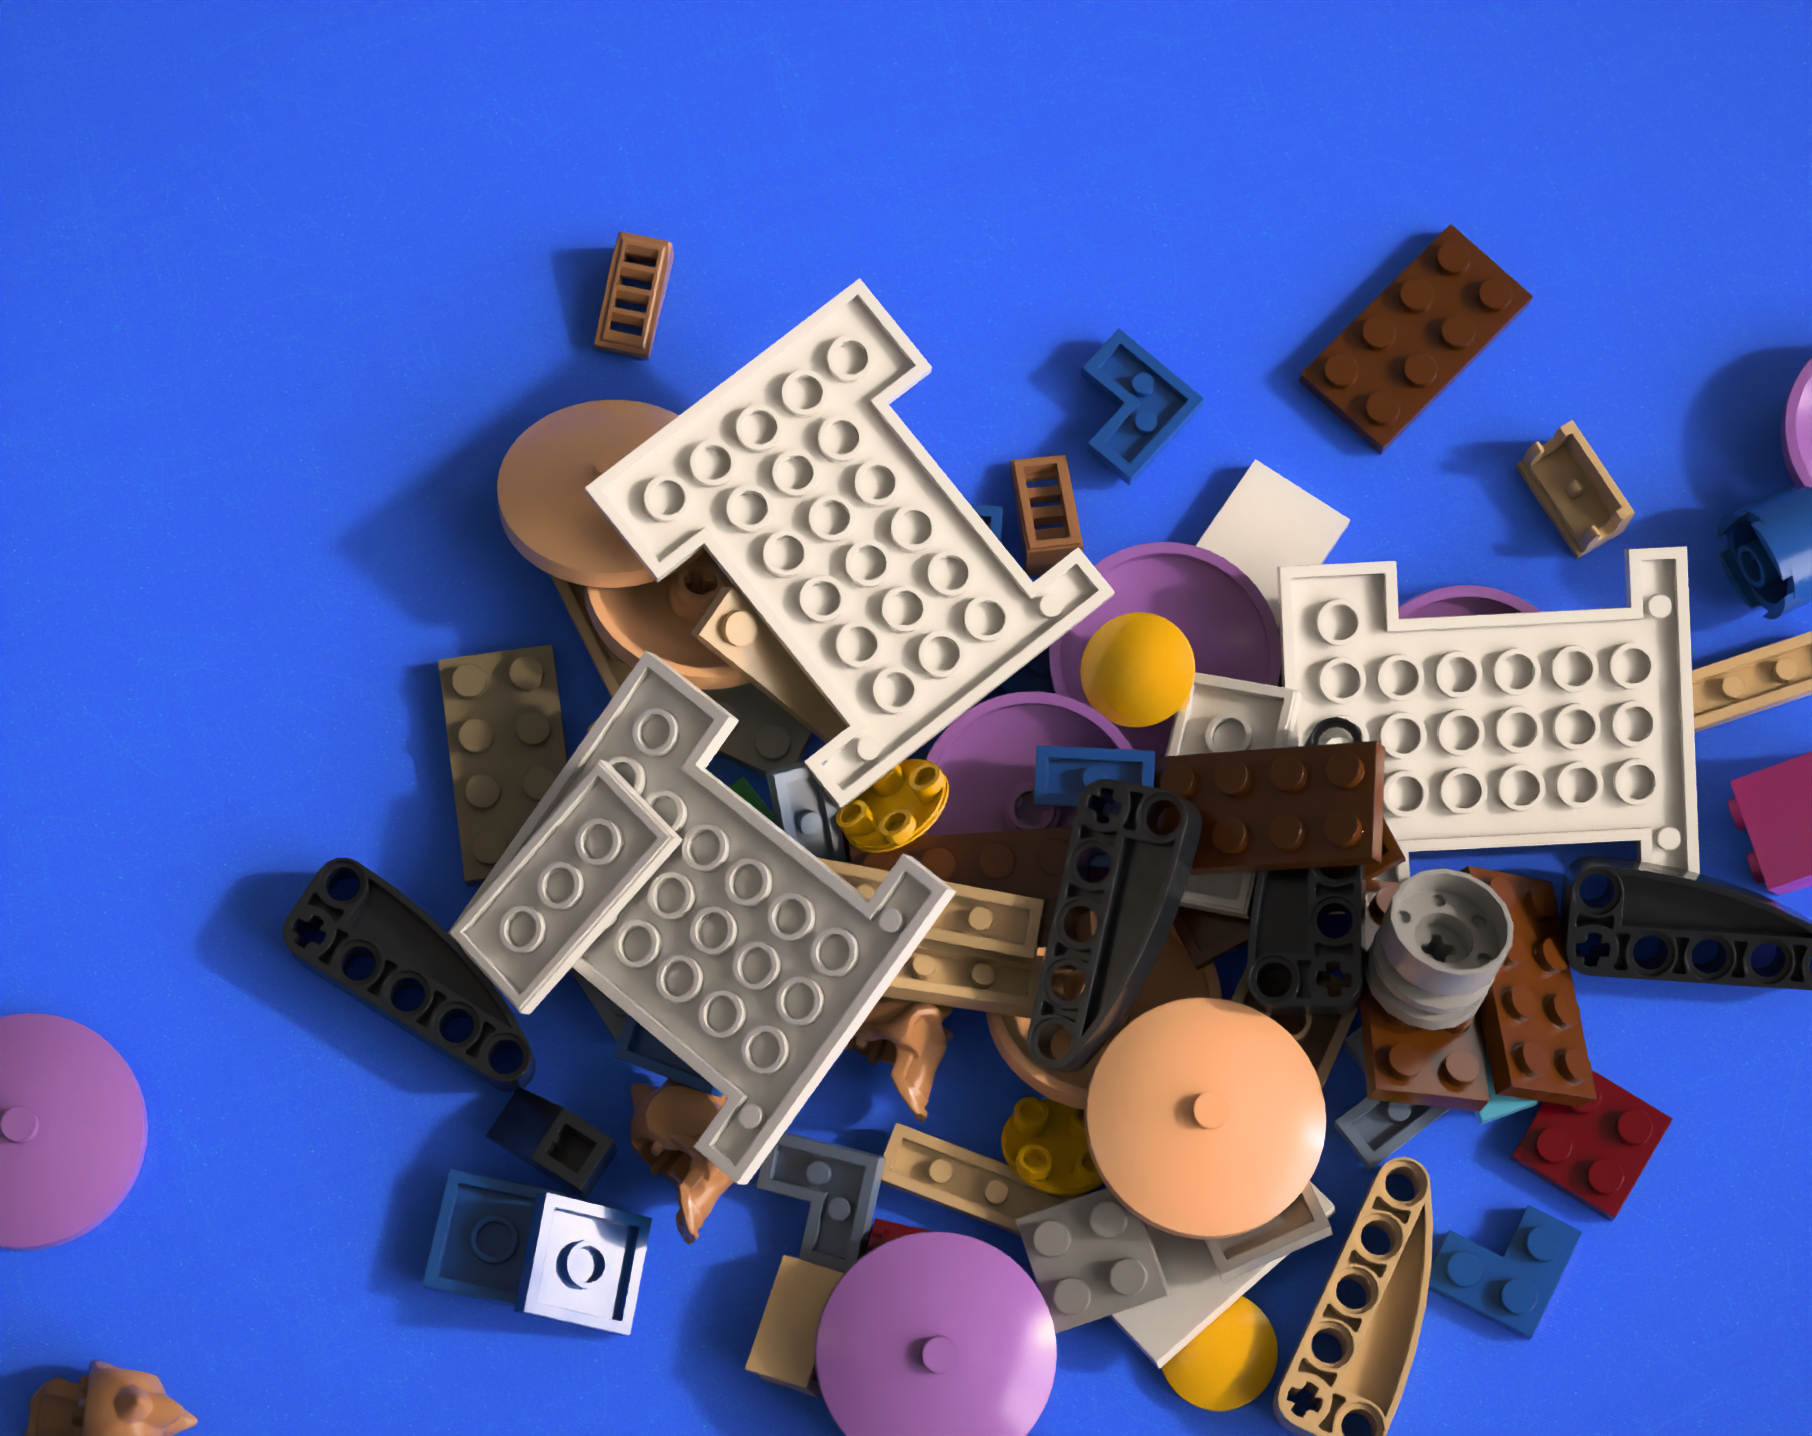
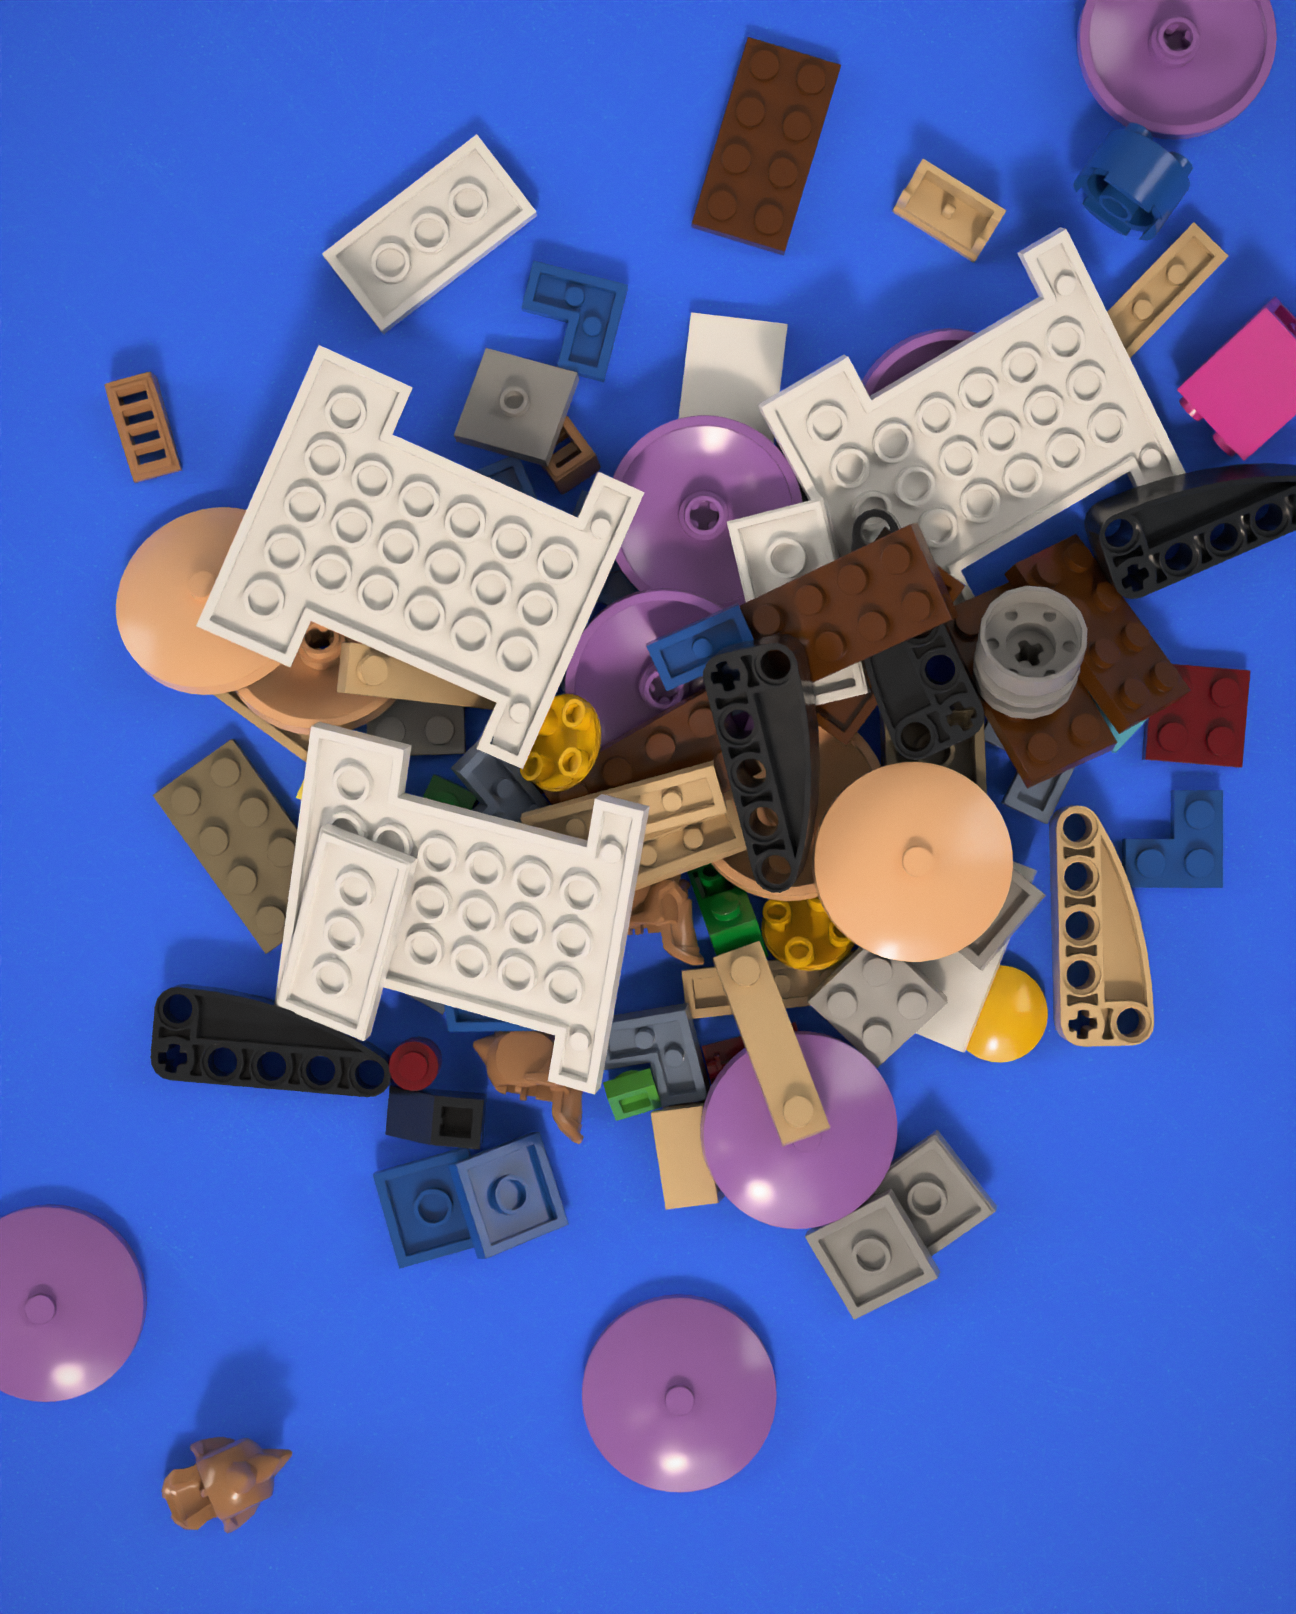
camera: 25 degrees left, 15 degrees up
(560, 1073) = (415, 1063): none -> dark red brick
(773, 1227) = (632, 1093): none -> bright green plate
(953, 1235) = (771, 1043): none -> tan plate
(974, 1090) = (724, 911): none -> green slope
(1026, 254) = (430, 234): none -> white plate
(1026, 461) = (516, 407): none -> light grey plate
(1138, 670) = (691, 541): yellow dish -> none

